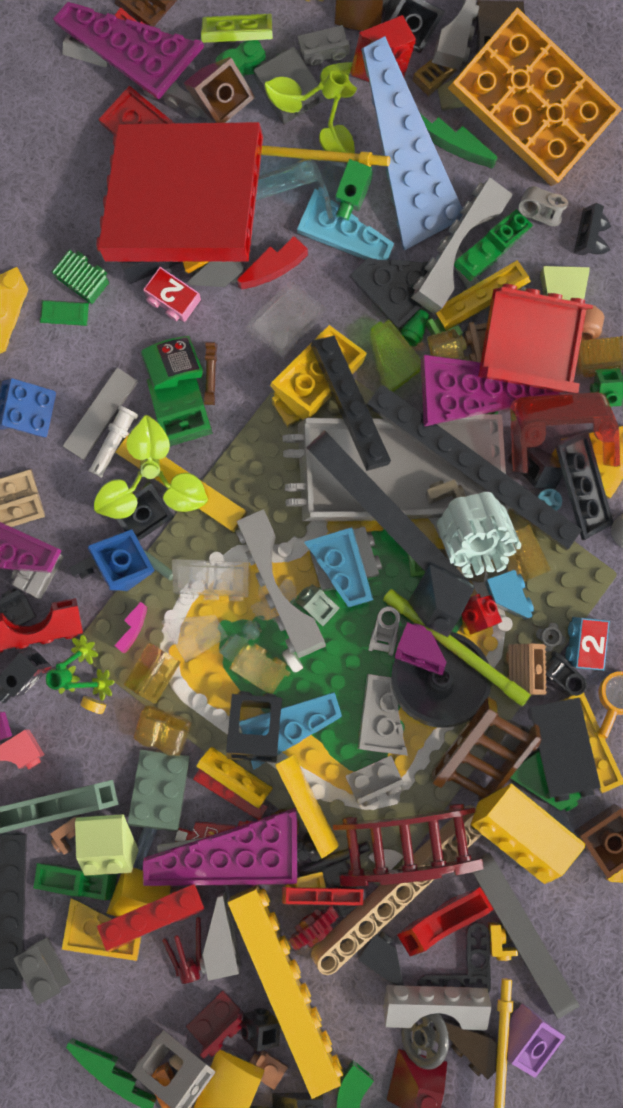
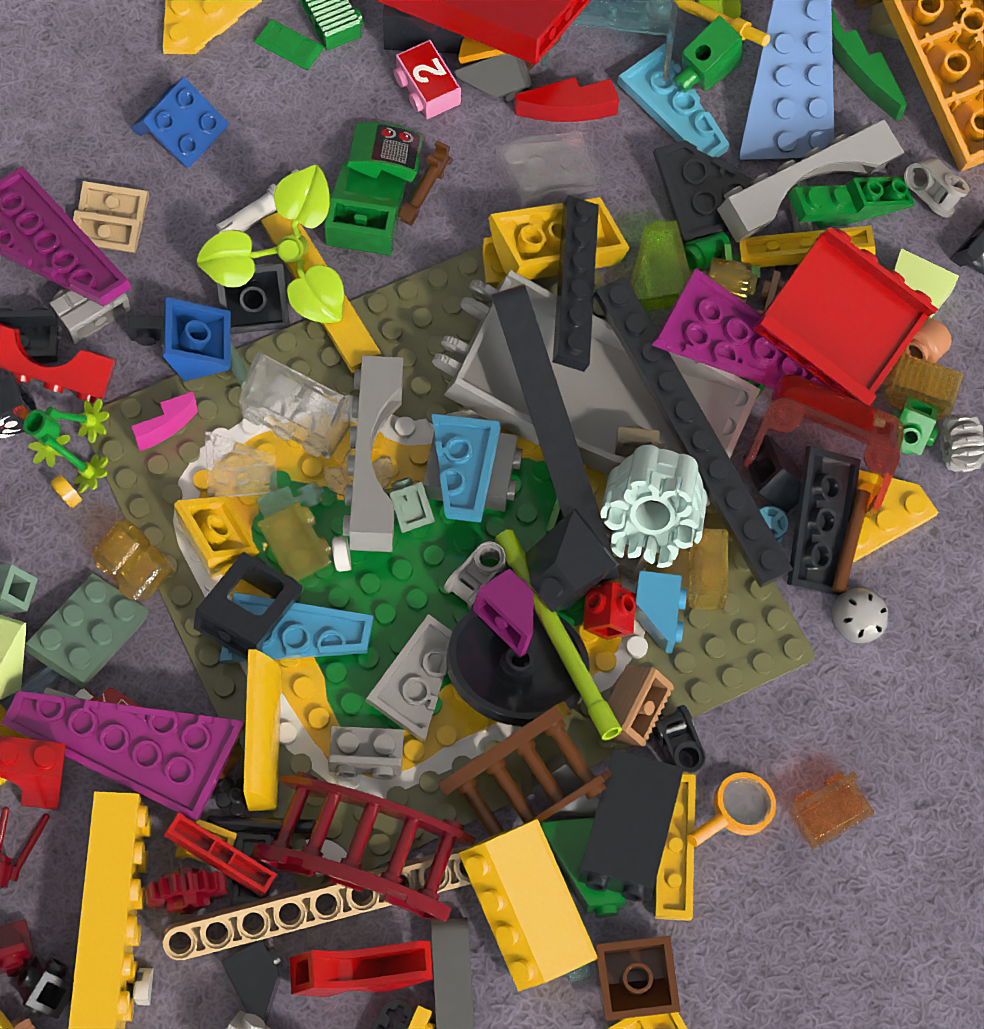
camera: 20 degrees right, 15 degrees down
(100, 413) = (265, 170): light grey tile -> none
(152, 673) = (160, 487): clear yellow panel -> none
(206, 686) = (214, 532): none -> yellow slope
(221, 950) = (56, 847): light grey slope -> none
(224, 792) = (171, 673): red piece -> none
(234, 777) = (190, 658): yellow plate -> none
(316, 993) = (143, 986): none -> white tile
(552, 630) = (691, 678): dark grey plate -> none
(587, 643) = (731, 716): brick -> none
(605, 487) = (851, 541): none -> reddish brown bar

